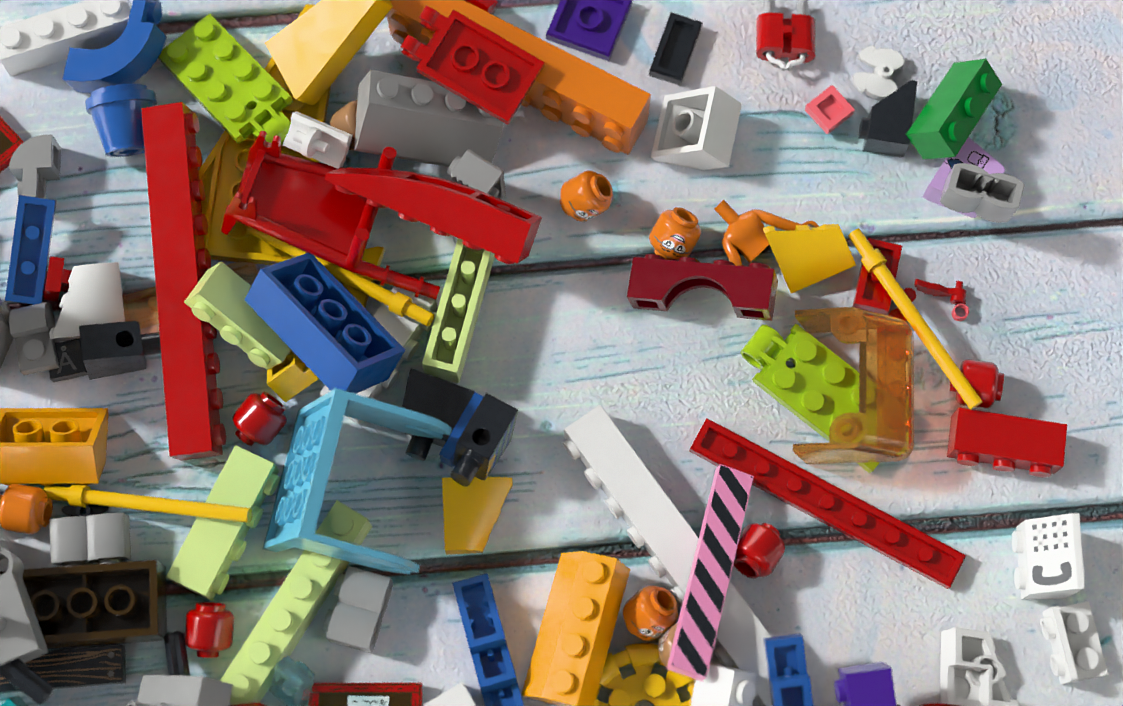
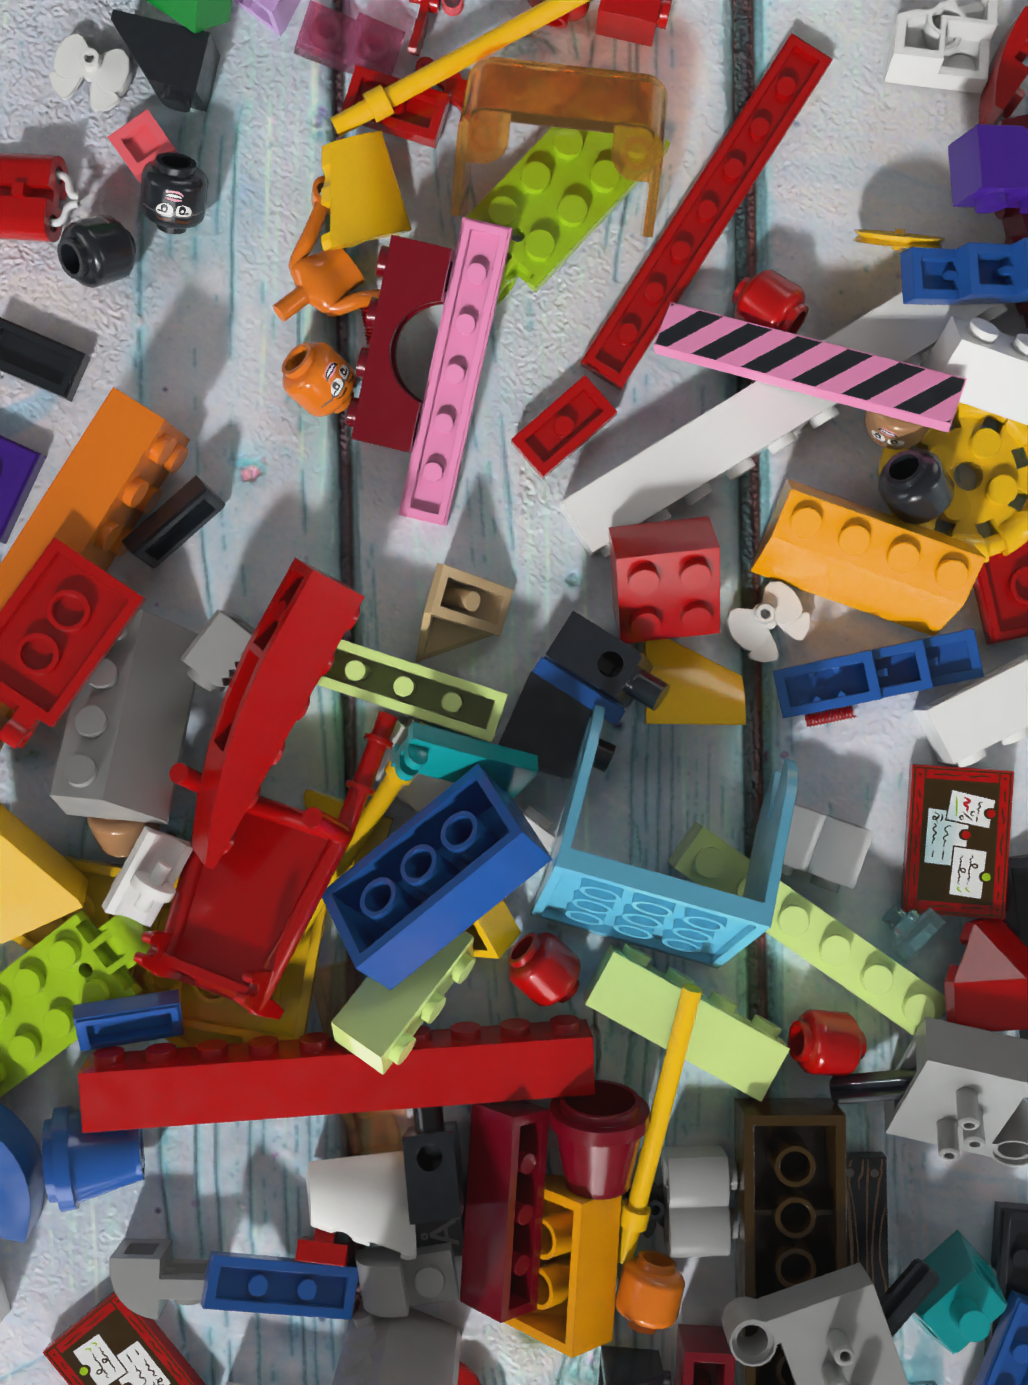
camera: 85 degrees left, 15 degrees up
(86, 399) = (504, 1208): none -> dark red brick
(137, 462) = (599, 1138): none -> dark red piece
(218, 135) = (128, 1020): none -> blue tile
(410, 332) = (452, 755): none -> teal hinge
(460, 625) = (832, 713): none -> red leg
(517, 343) = (460, 611): none -> tan slope
(535, 574) = (751, 626): none -> white piece
(547, 480) = (665, 579): none -> red brick
(566, 144) = (174, 522): none -> black tile
(586, 196) = (252, 499): orange head -> none
(628, 657) = (916, 486): none -> black head
(650, 612) = (847, 455): orange head -> none
(656, 408) = (563, 427): none -> red plate
(688, 327) = (455, 370): none -> bright pink tile
(697, 129) = (160, 336): white slope -> none
(751, 82) = (96, 251): none -> black head
(797, 130) = (173, 192): none -> black head
(815, 639) = (897, 239): none -> yellow wheel
(921, 242) = (346, 42): none -> clear pink slope

